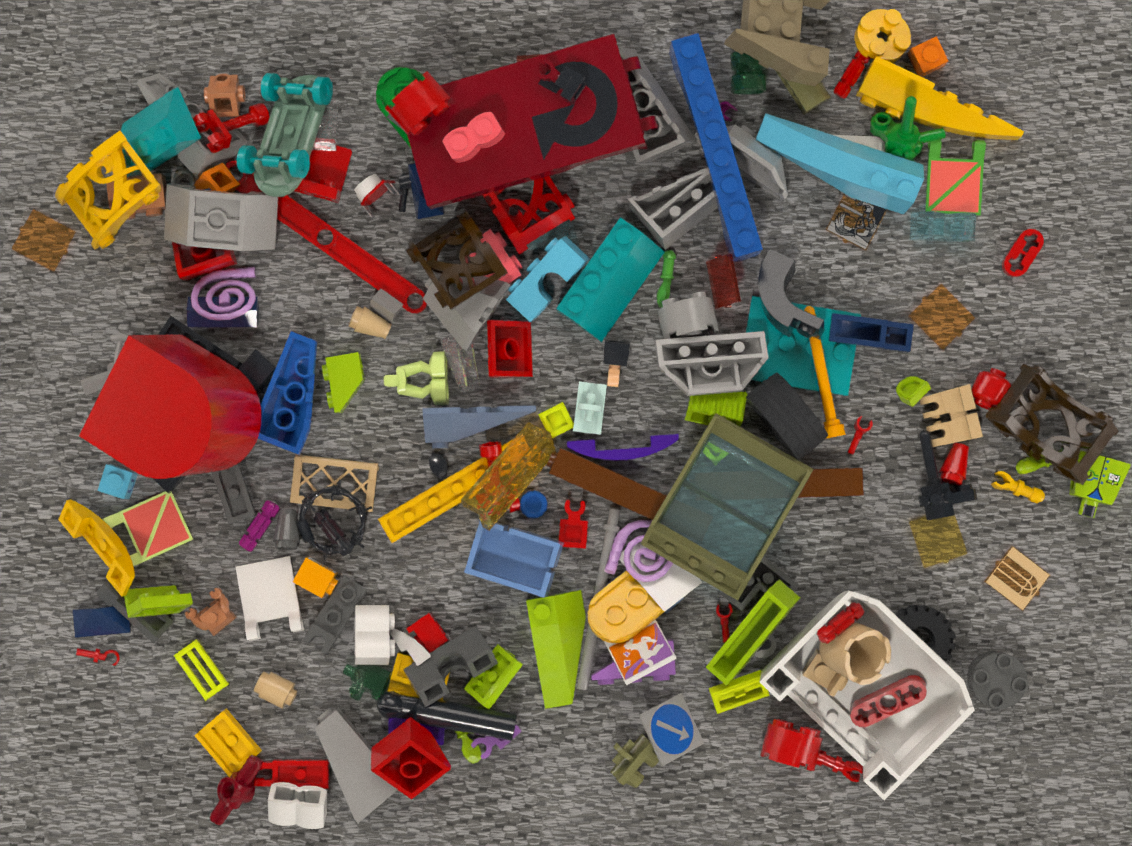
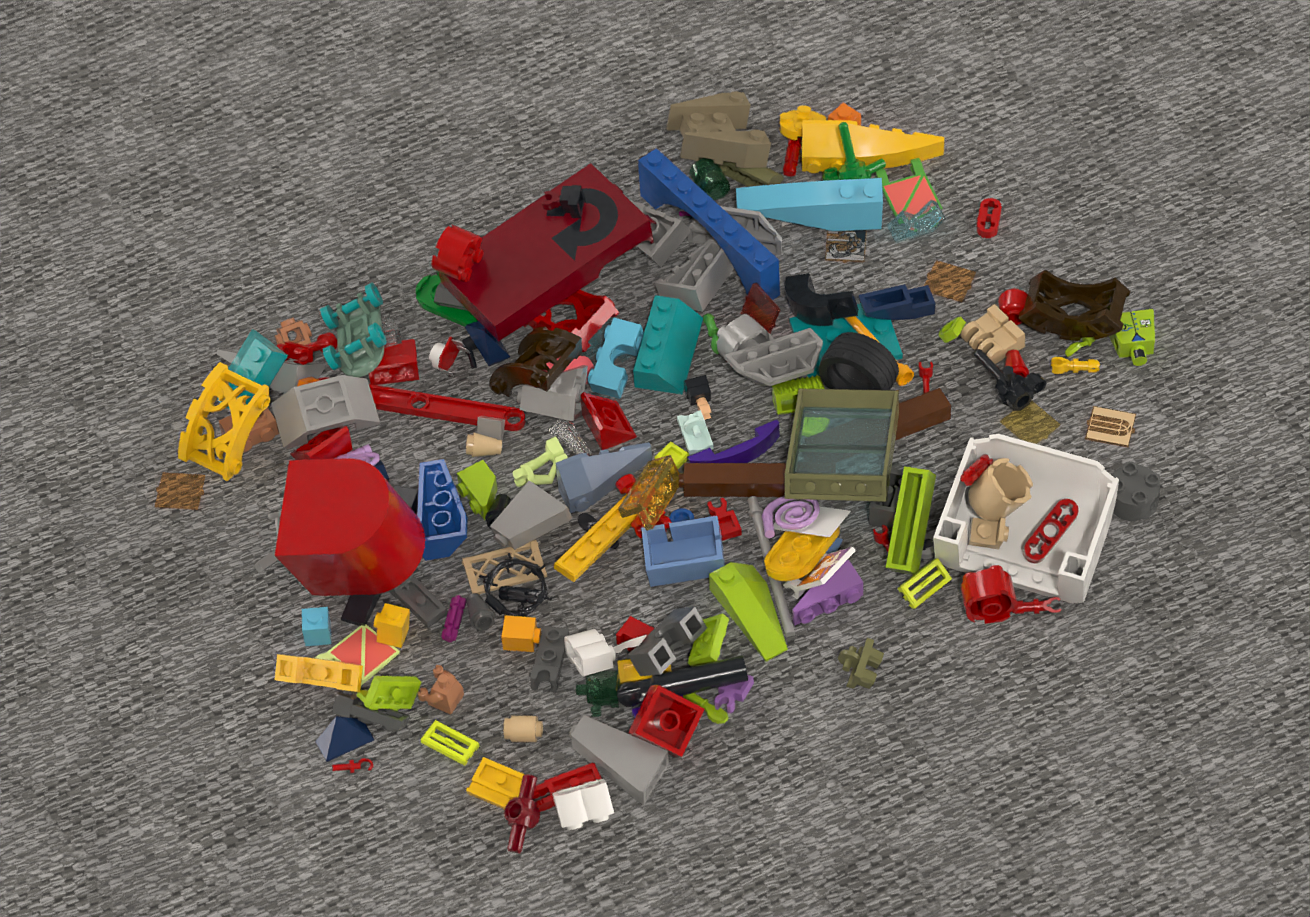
camera: 20 degrees left, 35 degrees down
(192, 514) = (392, 625): none -> yellow brick
(268, 595) = (485, 664): white flag -> none
(353, 416) = (497, 508): none -> black cone
(378, 449) = (529, 517): none -> light grey slope
(467, 141) = (511, 260): coral brick -> none
(671, 729) = (881, 629): piece -> none

